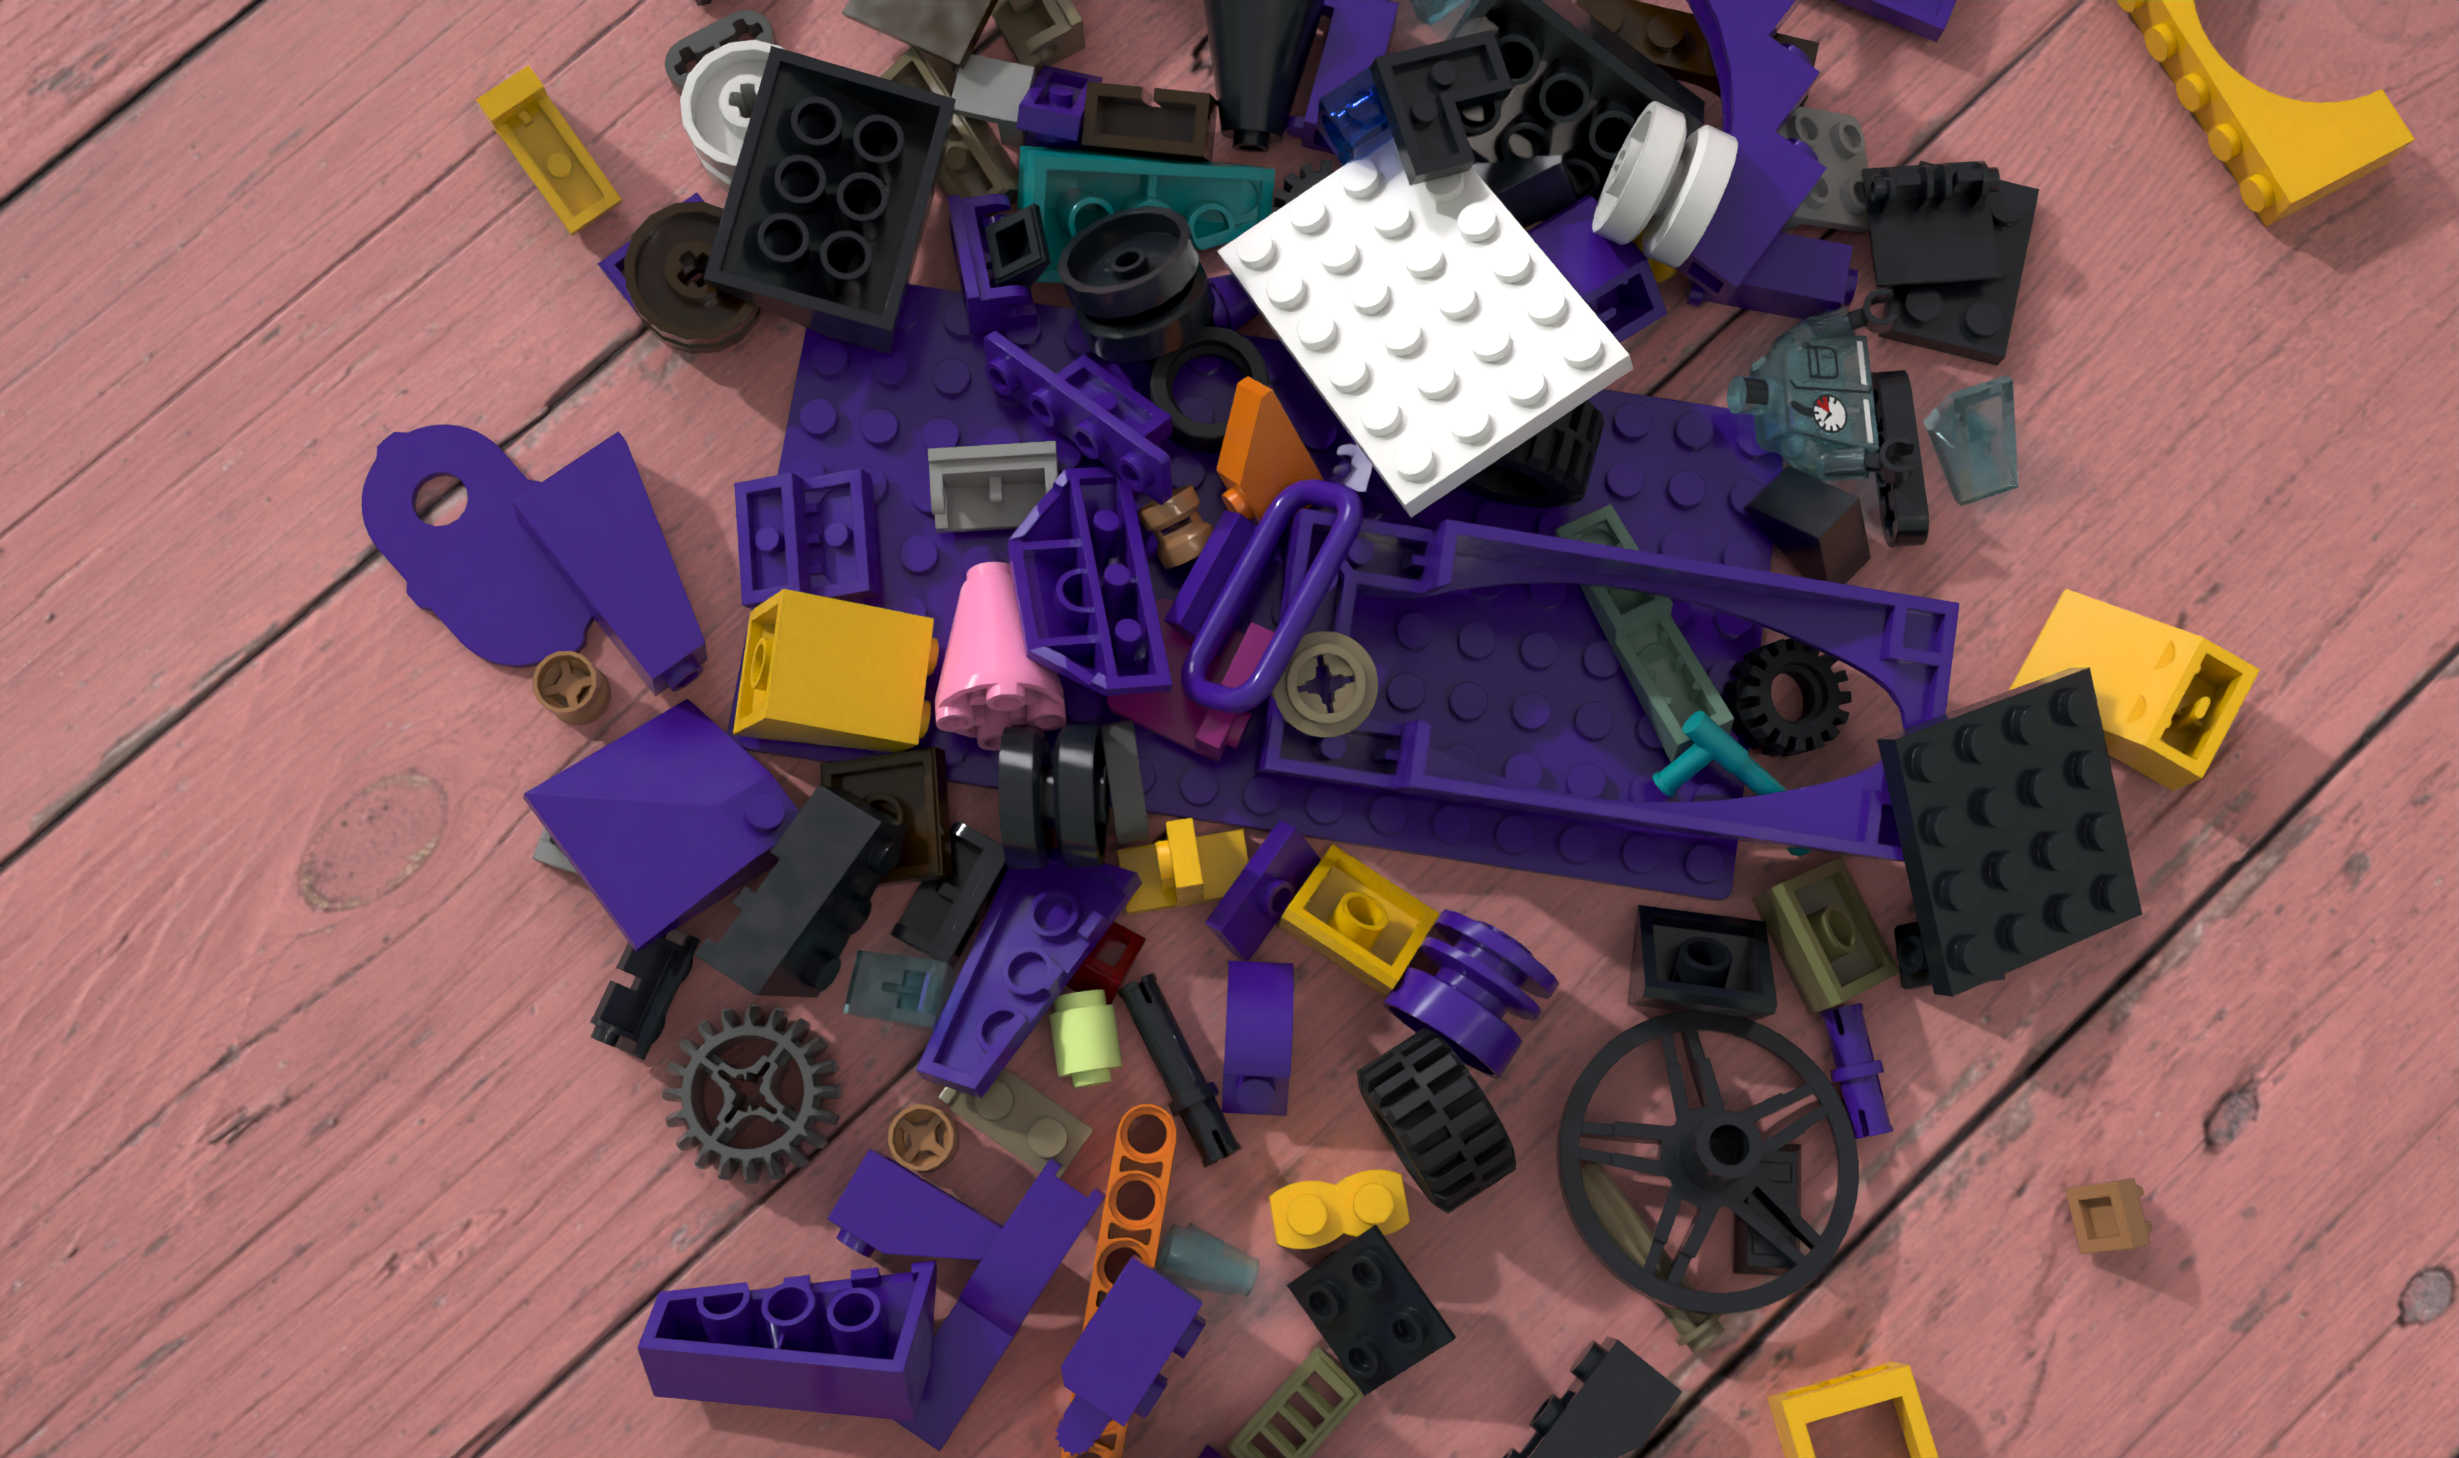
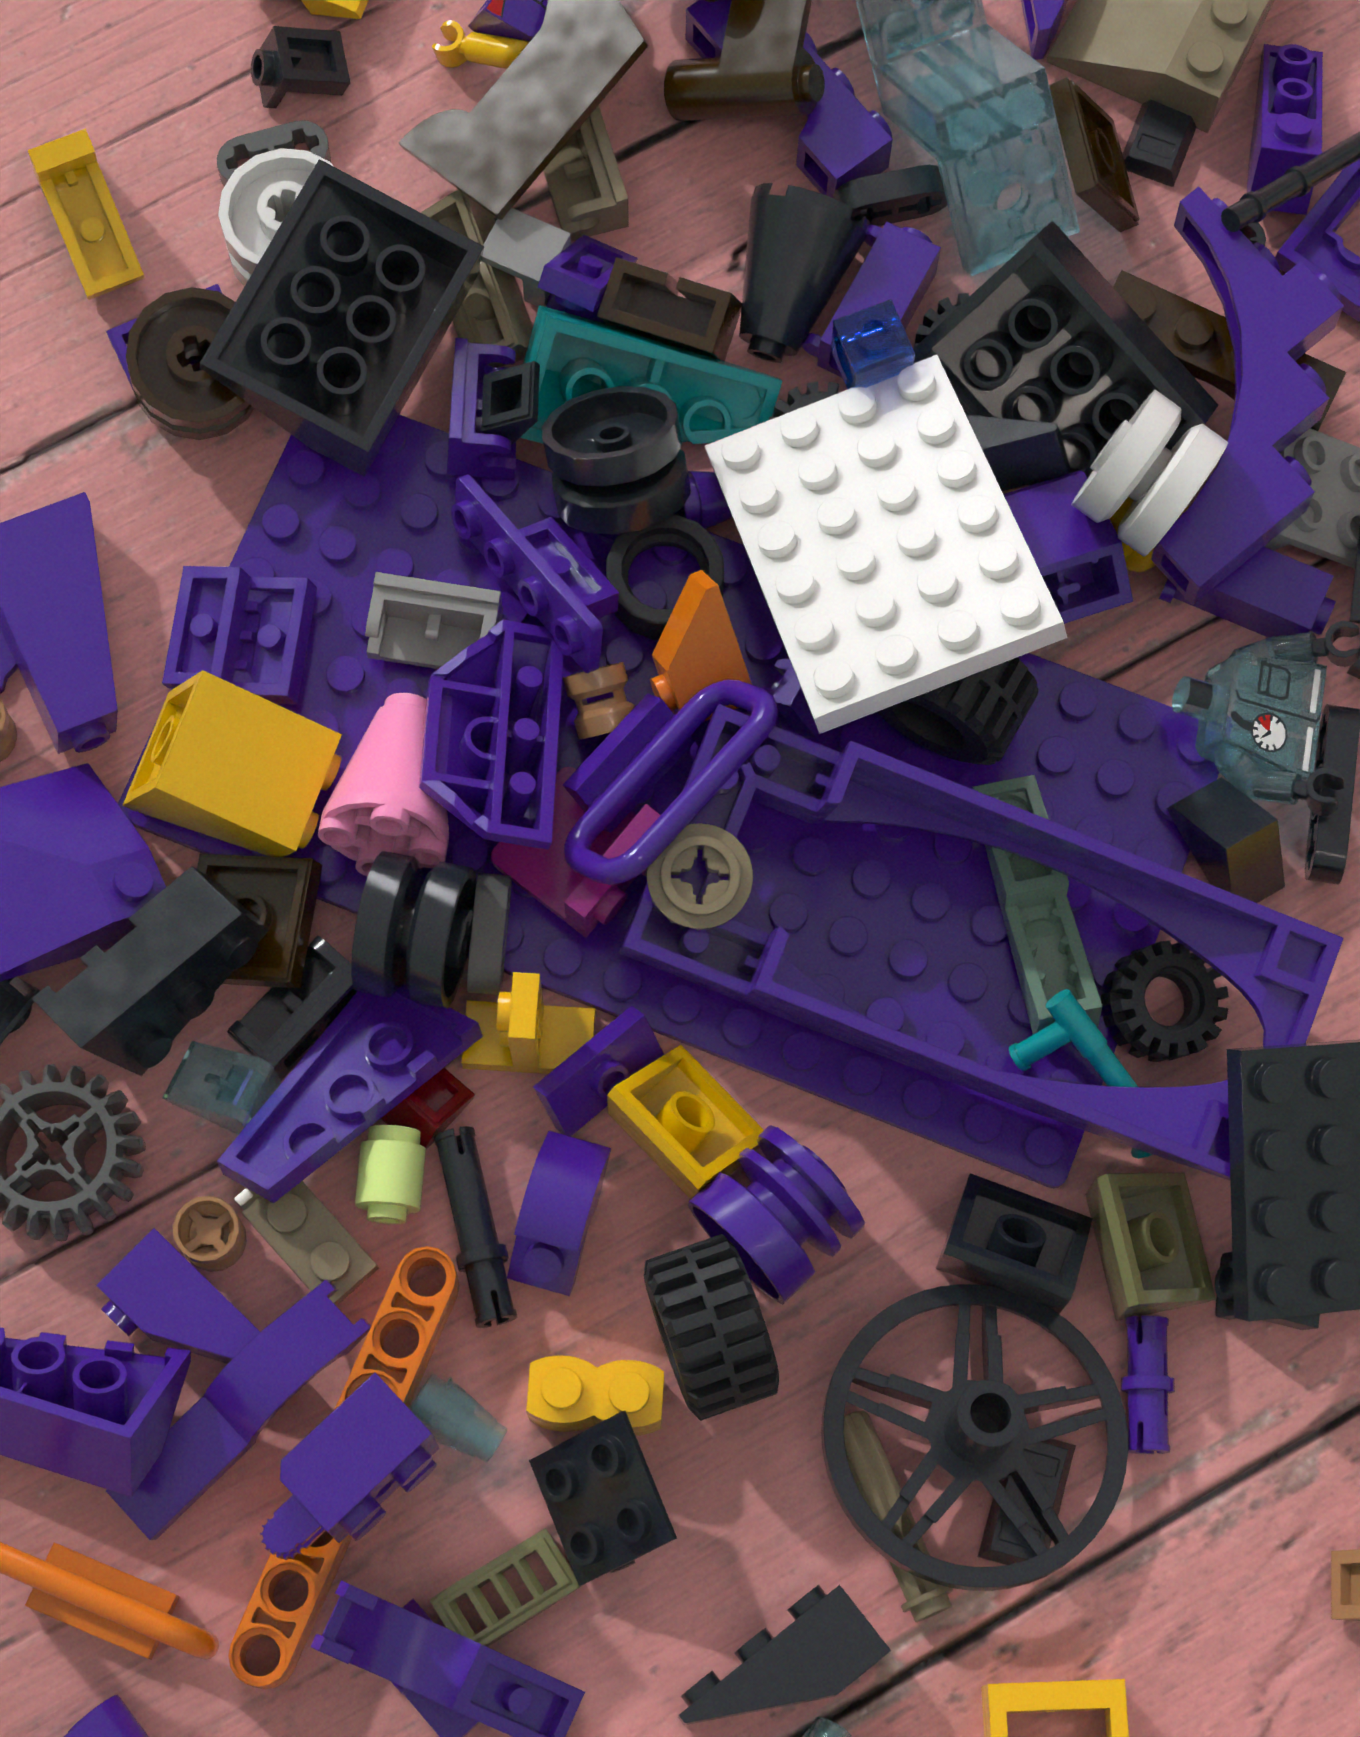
camera: 15 degrees right, 5 degrees down
(1423, 95) = (933, 335): black plate -> none

